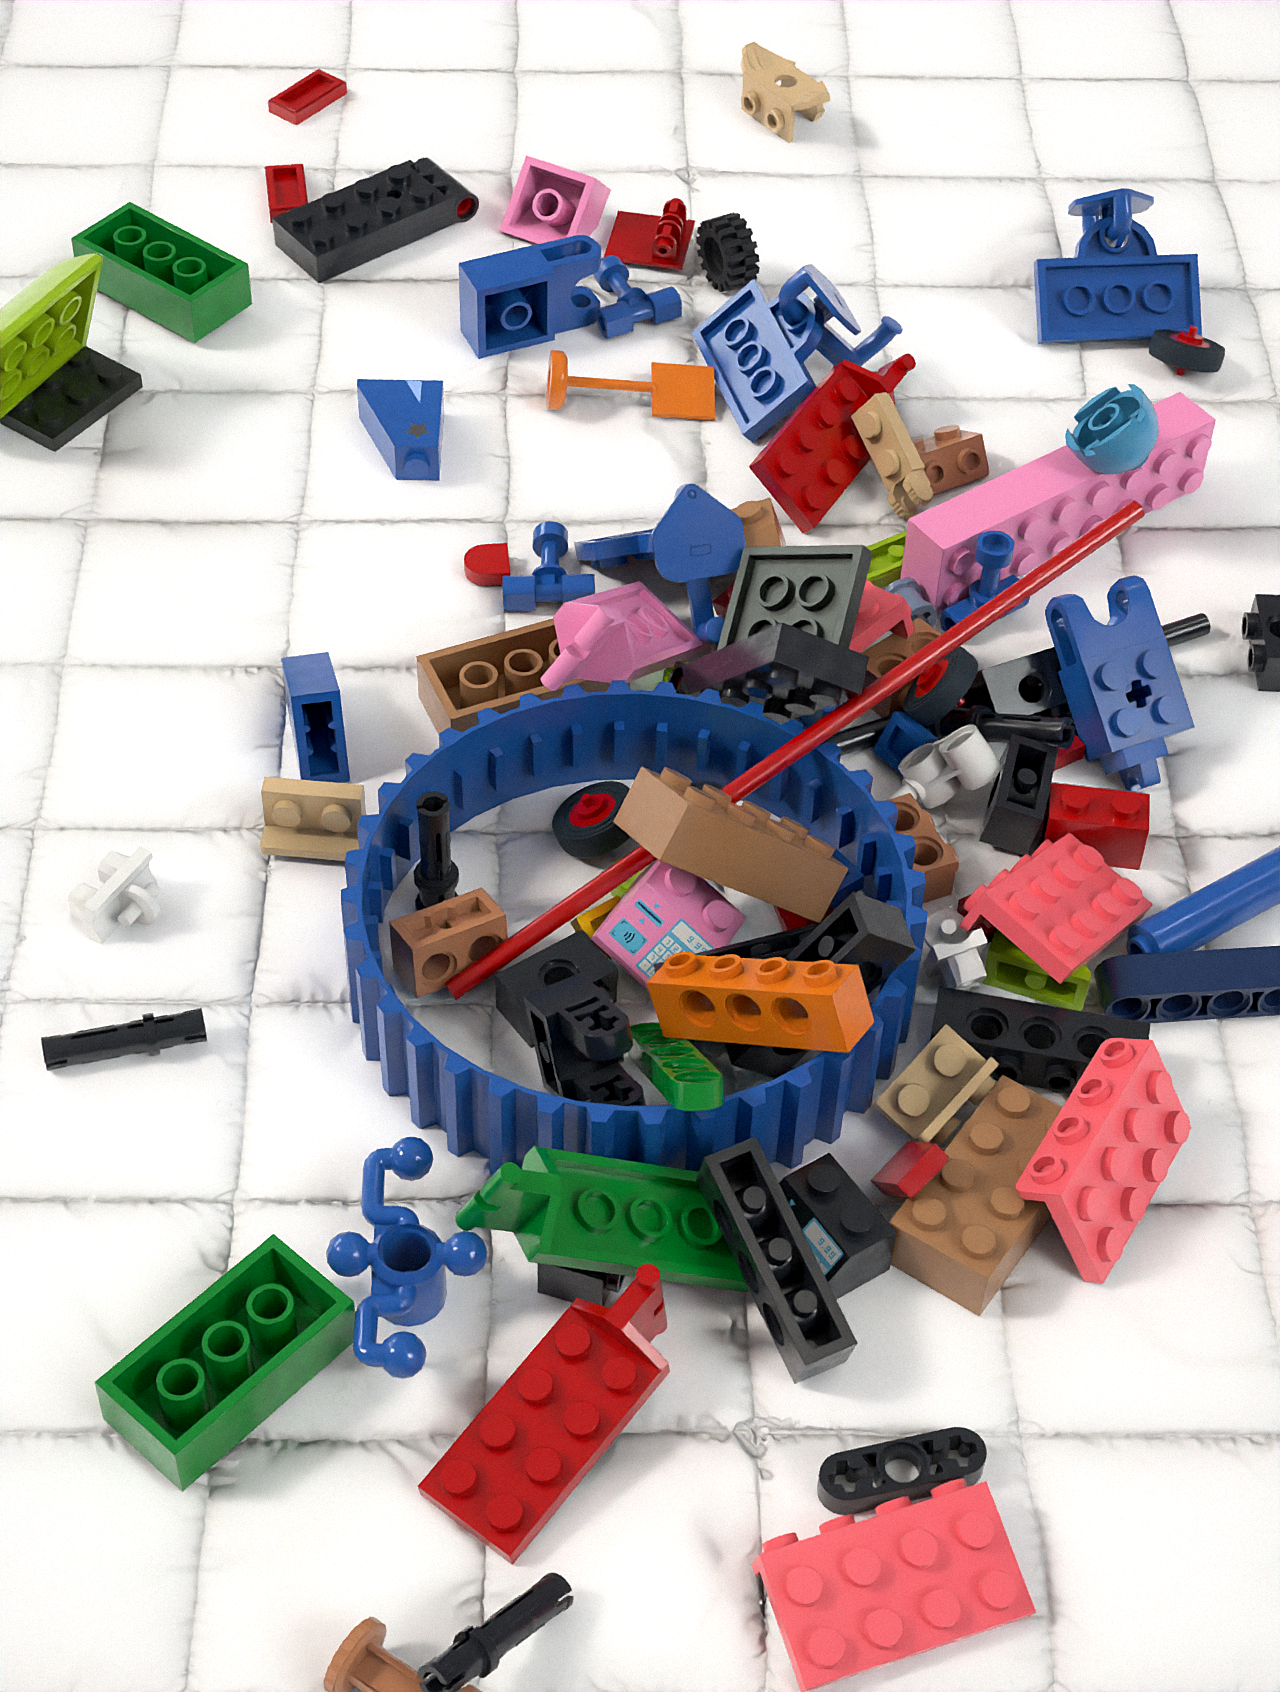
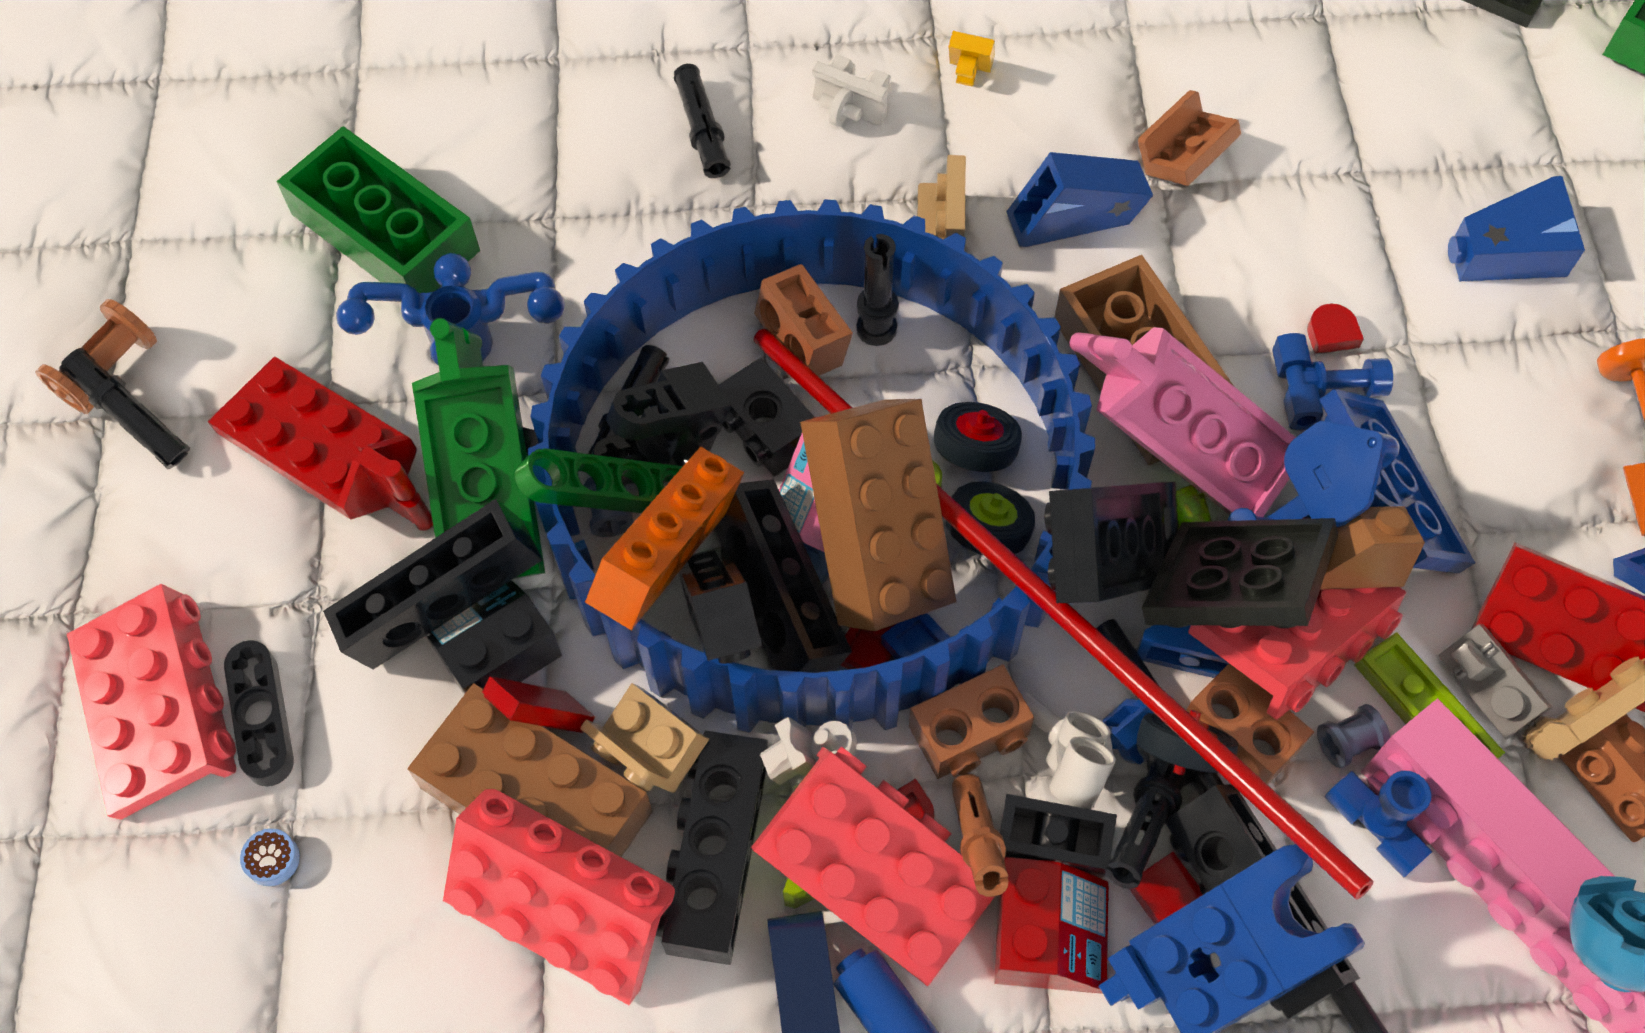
camera: 90 degrees right, 15 degrees up
(92, 787) = (970, 54): none -> yellow tile
(253, 627) = (1186, 140): none -> nougat bracket
(859, 516) = (1495, 681): none -> light grey hinge
(1045, 824) = (981, 843): none -> nougat pin
(1069, 1446) = (269, 857): none -> tile

